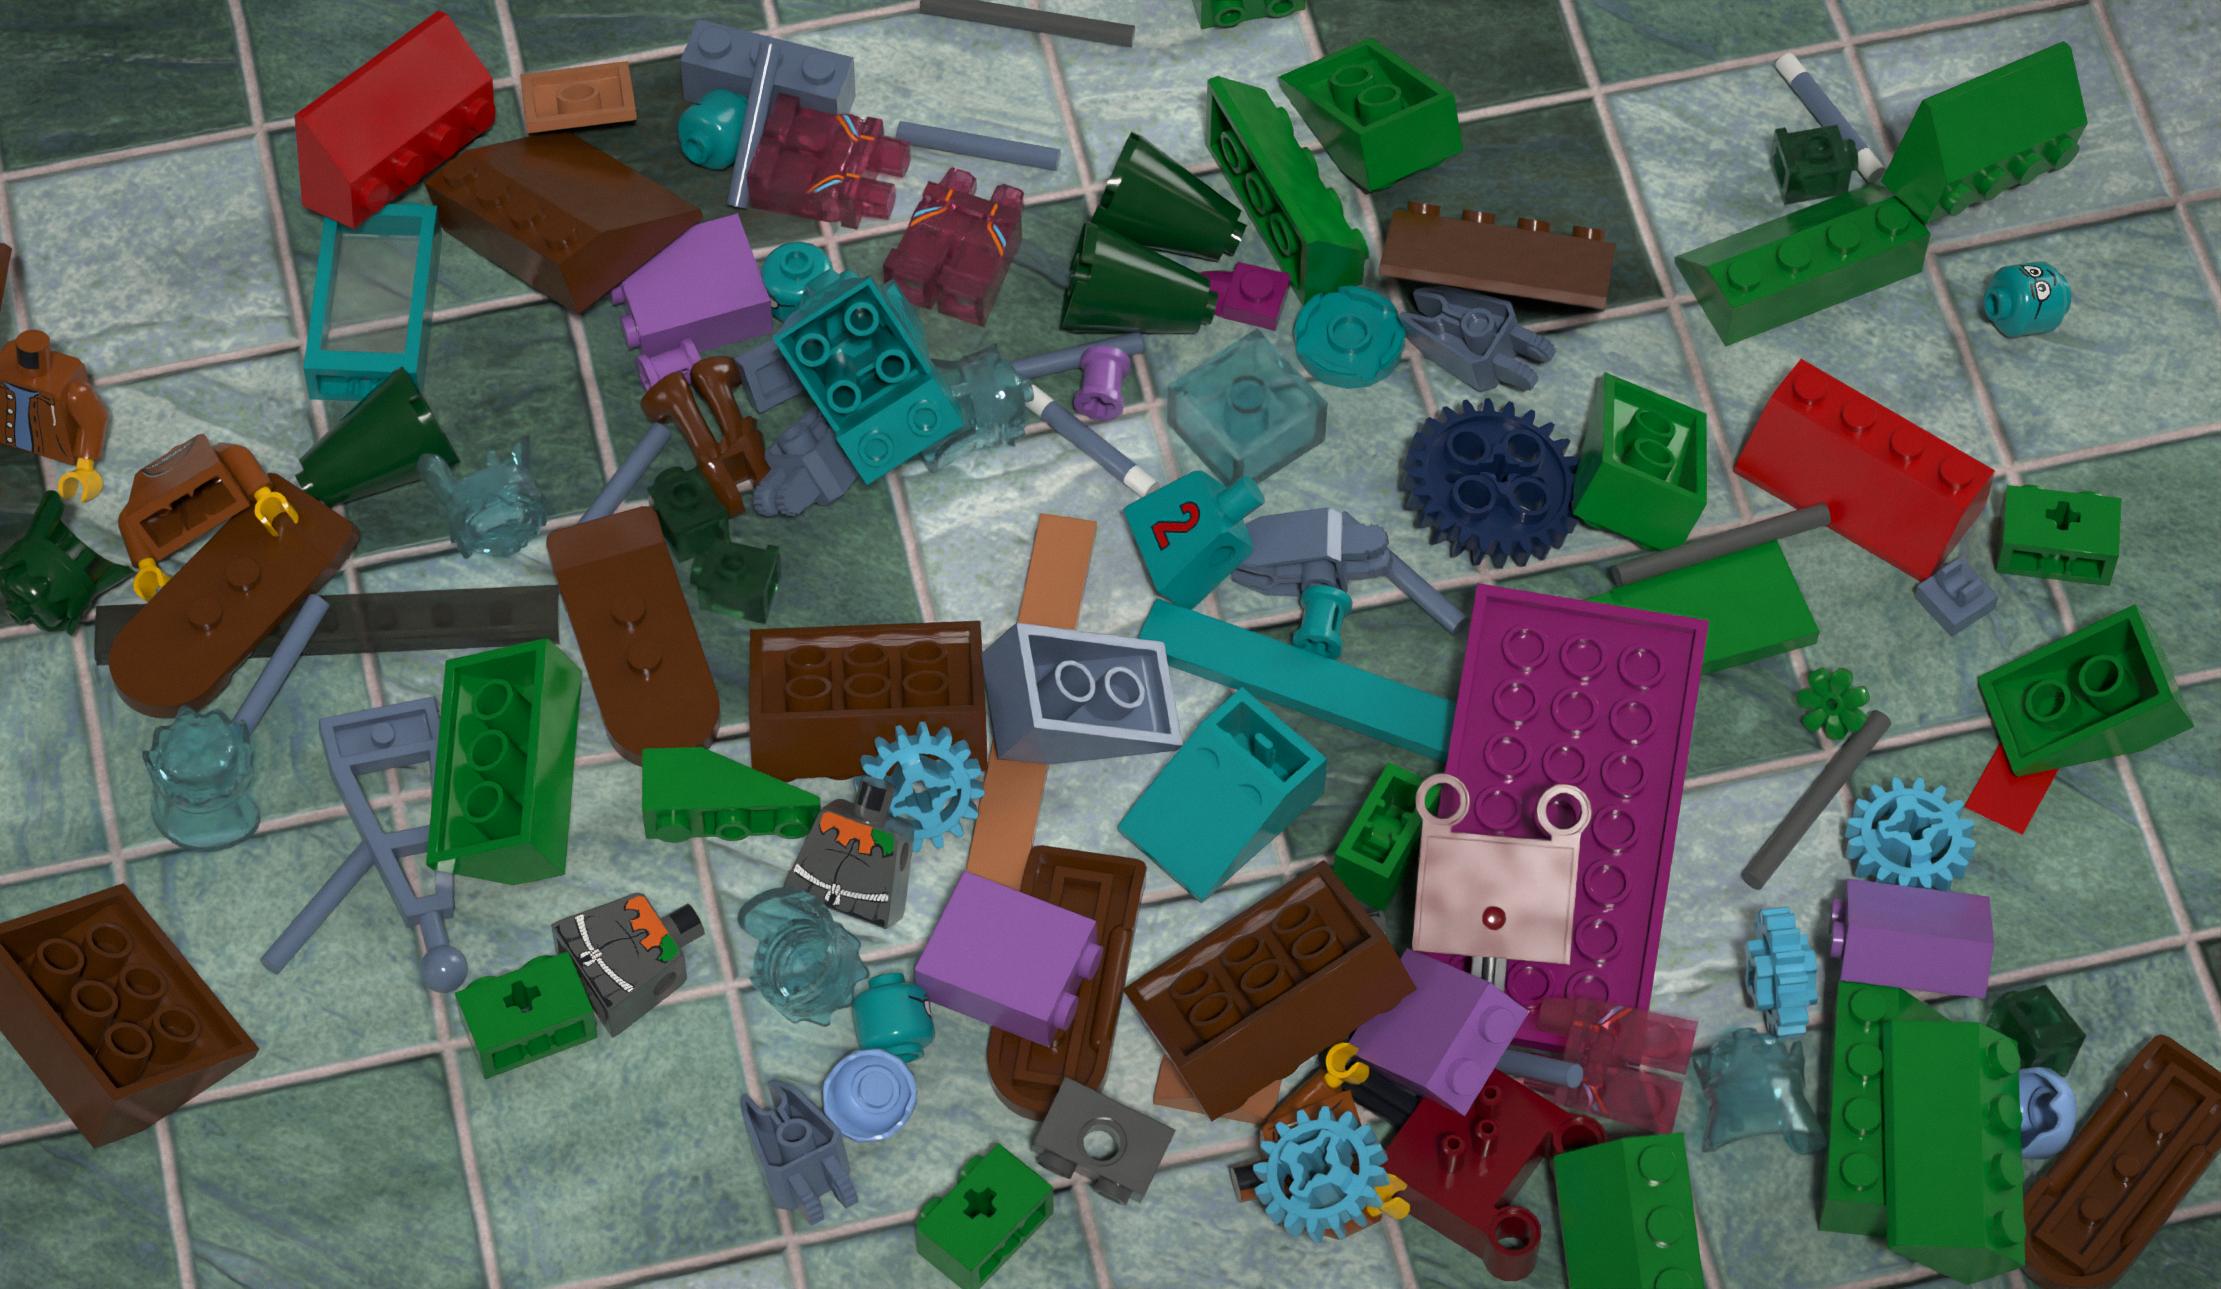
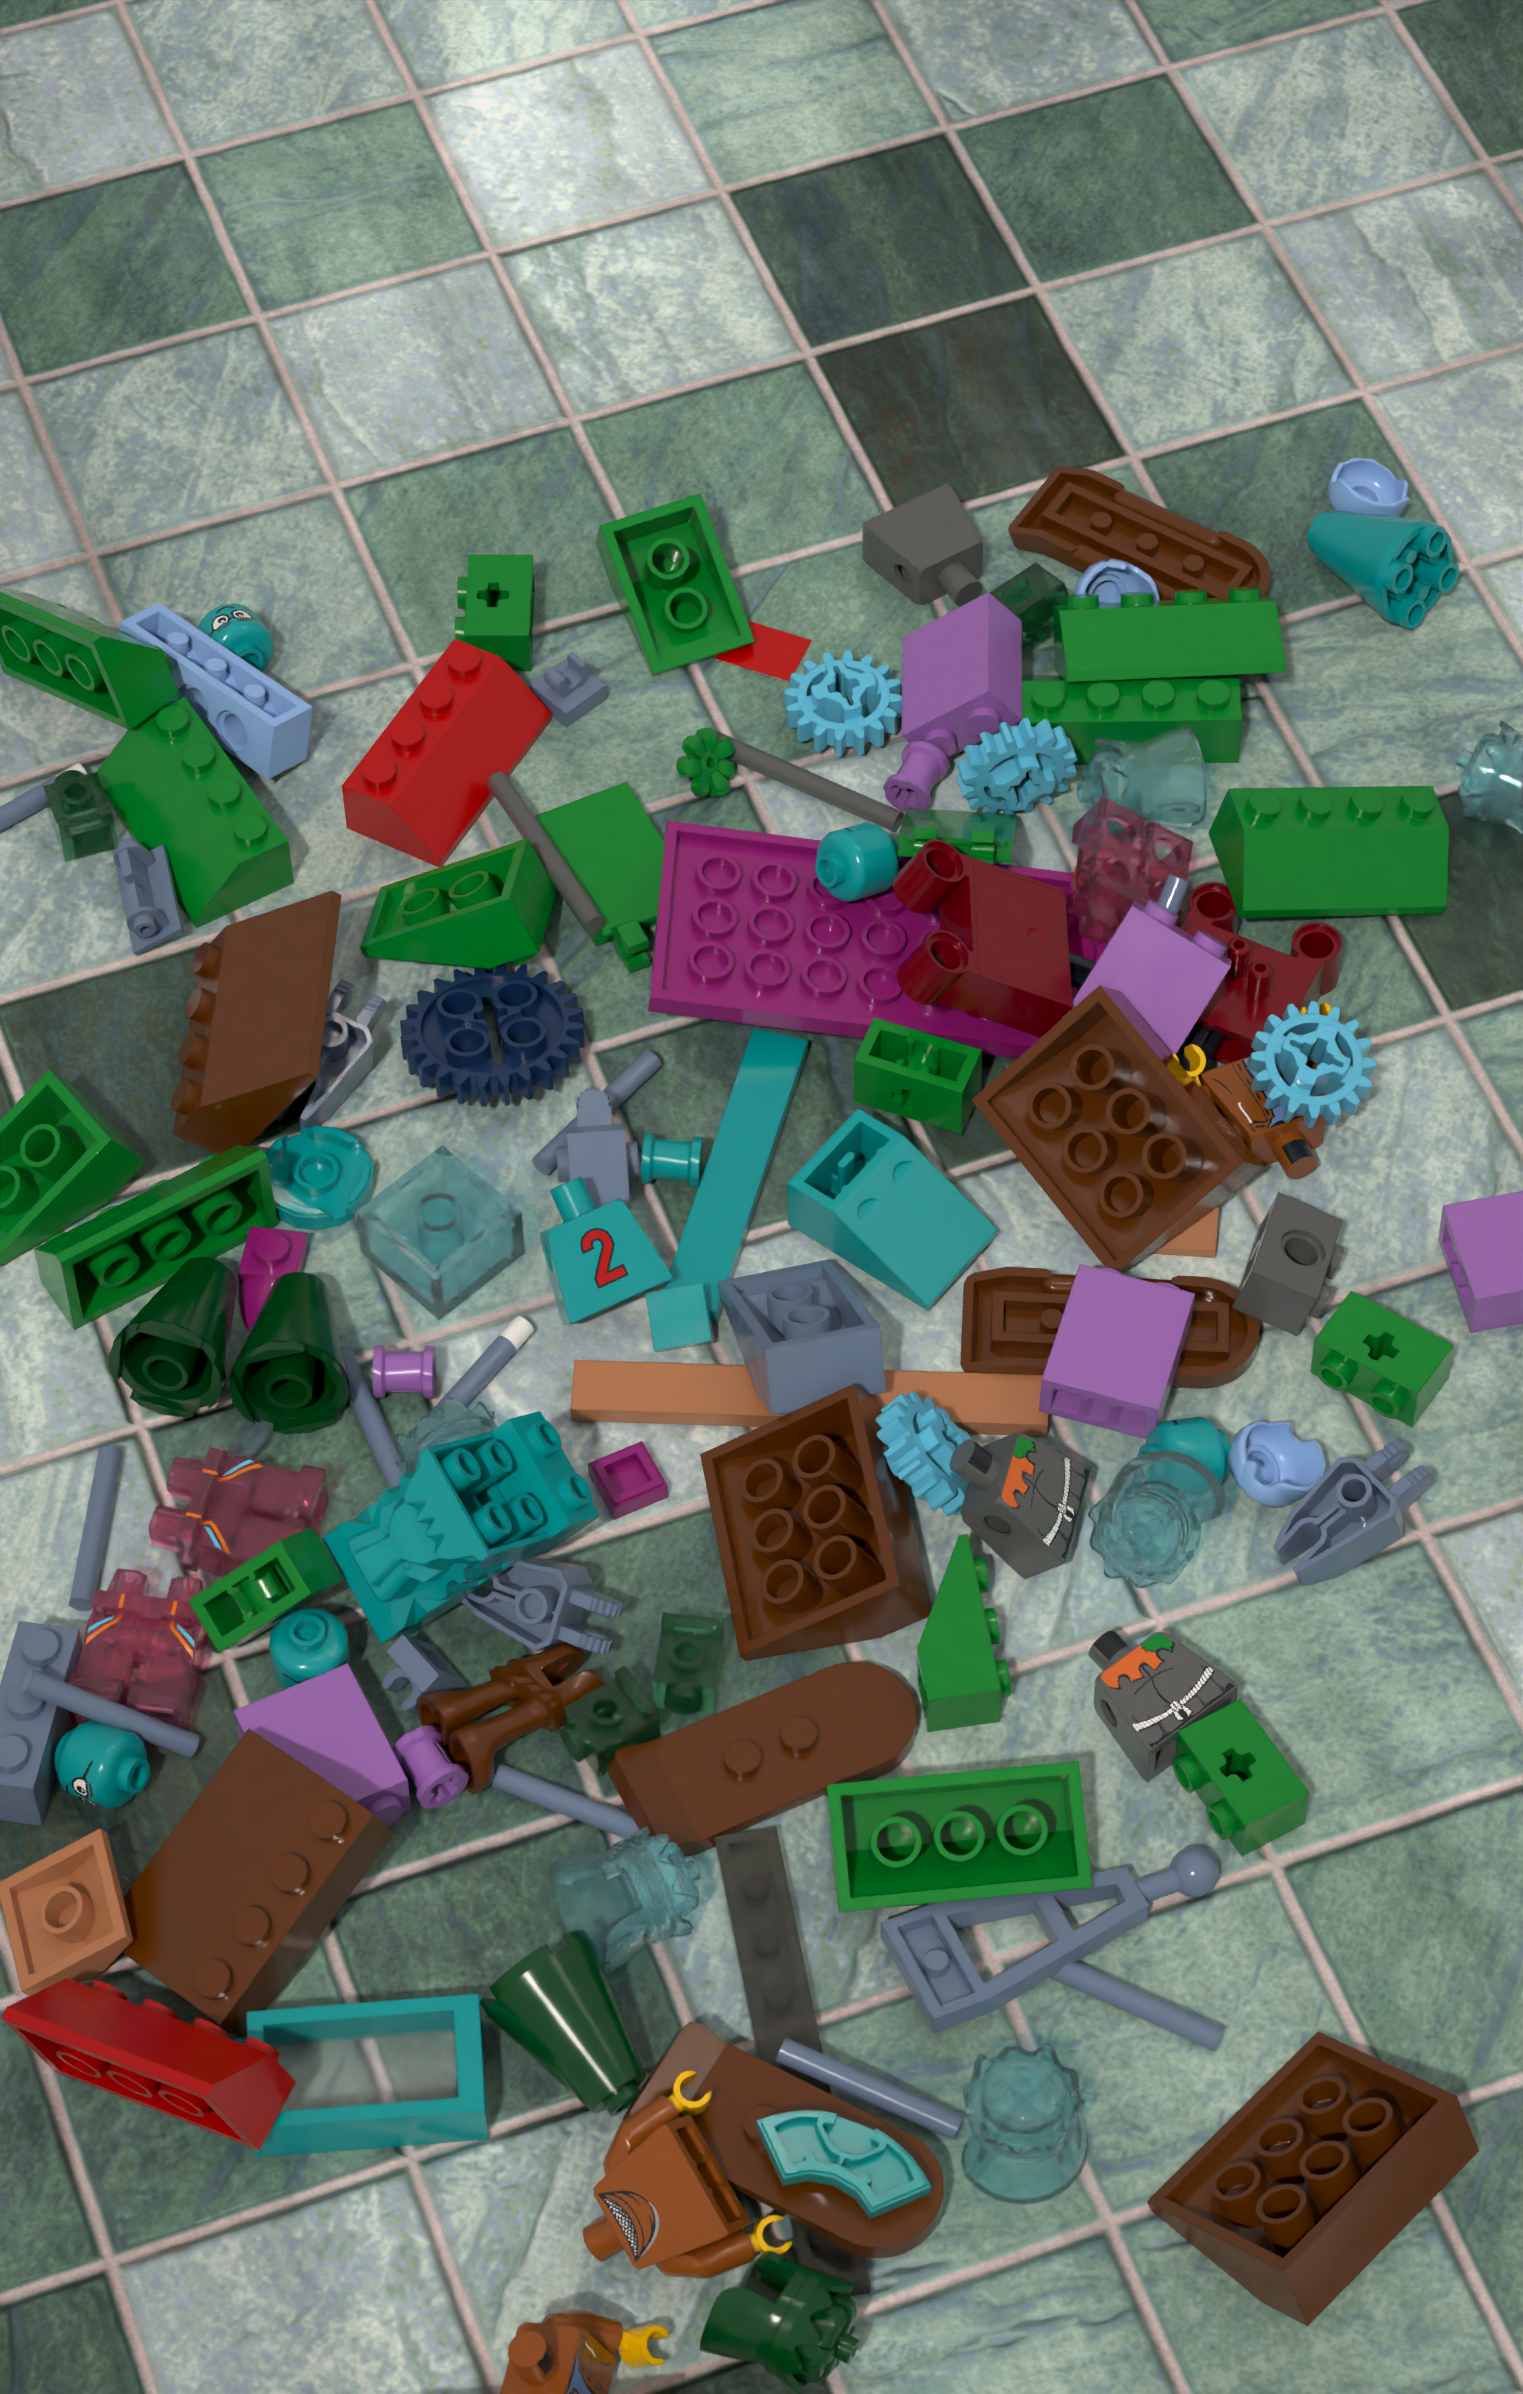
camera: 95 degrees left, 5 degrees down
(189, 624) = (845, 2155): none -> teal tile
(847, 232) = (265, 1589): none -> green brick
(960, 559) = (628, 1480): none -> magenta tile
(1129, 608) = (679, 1317): none -> teal tile
(1633, 782) = (857, 862): none -> teal head
(1674, 893) = (974, 834): none -> green tile
(1676, 211) = (147, 894): none -> sand blue hinge
(1803, 895) = (920, 769): none -> medium lavender bush
(1952, 269) = (235, 701): none -> light blue brick
(2132, 949) = (927, 548): none -> dark grey torso

